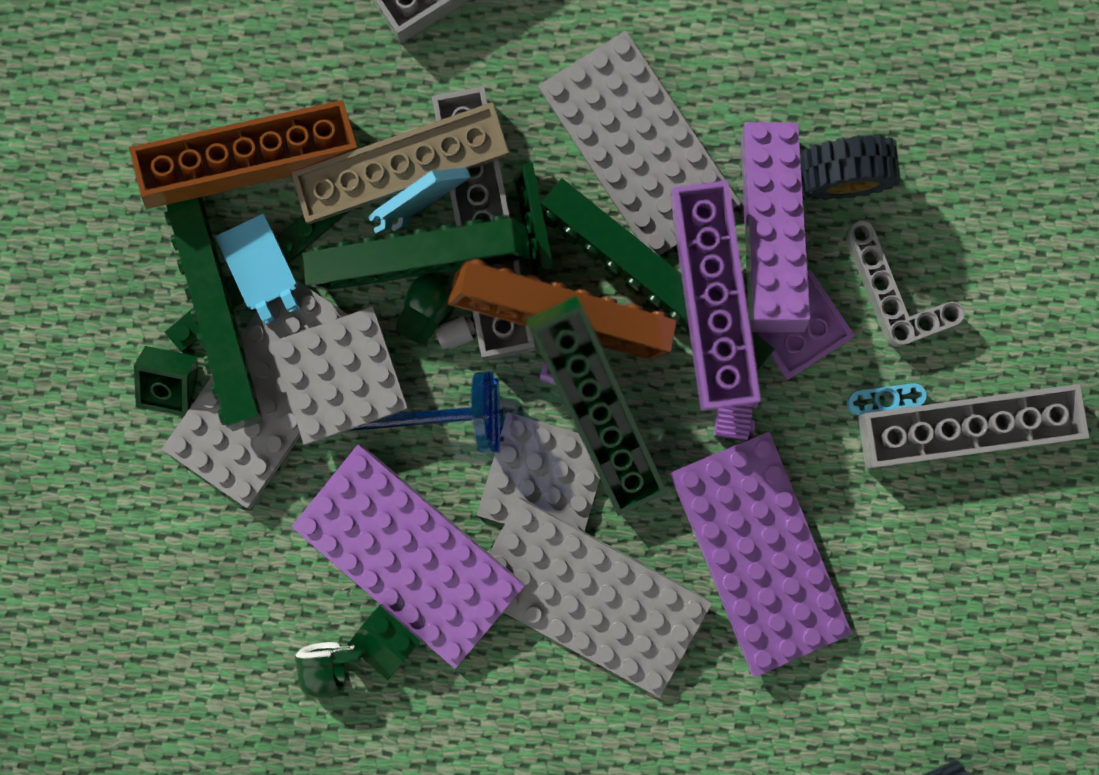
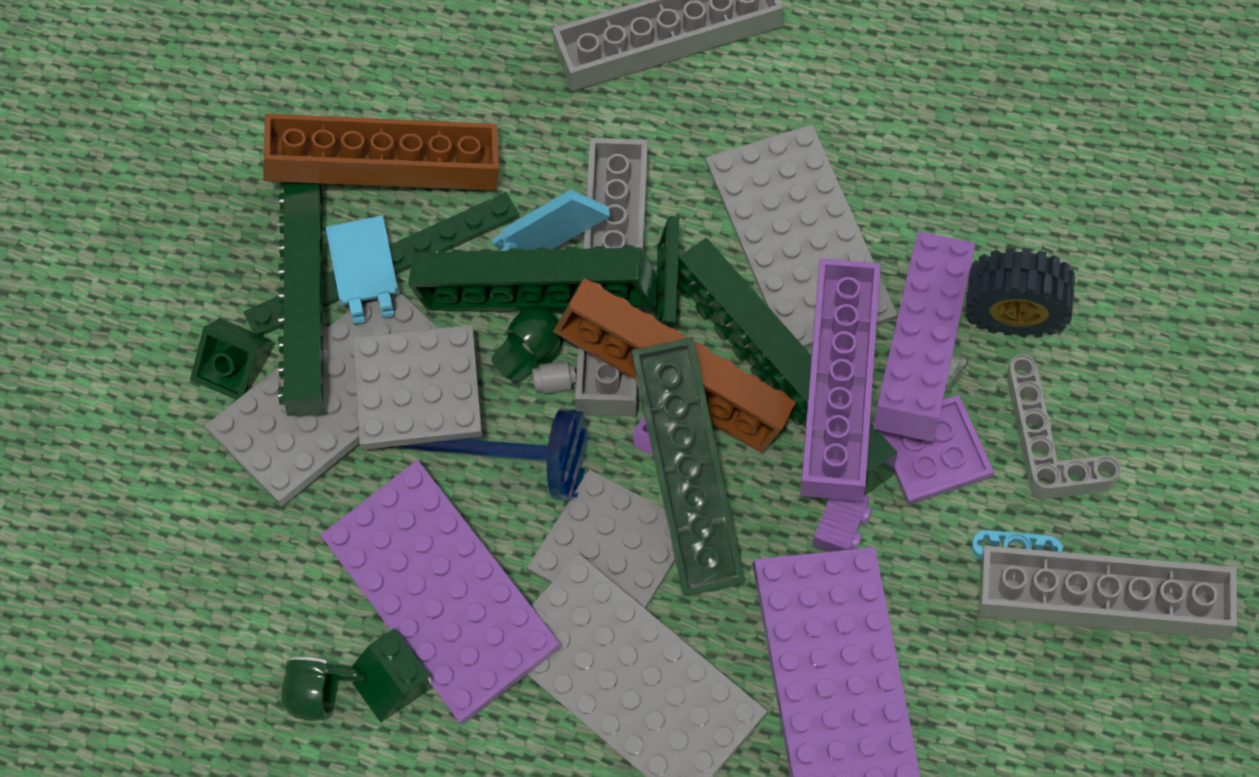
camera: 15 degrees right, 20 degrees down
(398, 162) = (507, 195): dark tan plate -> none

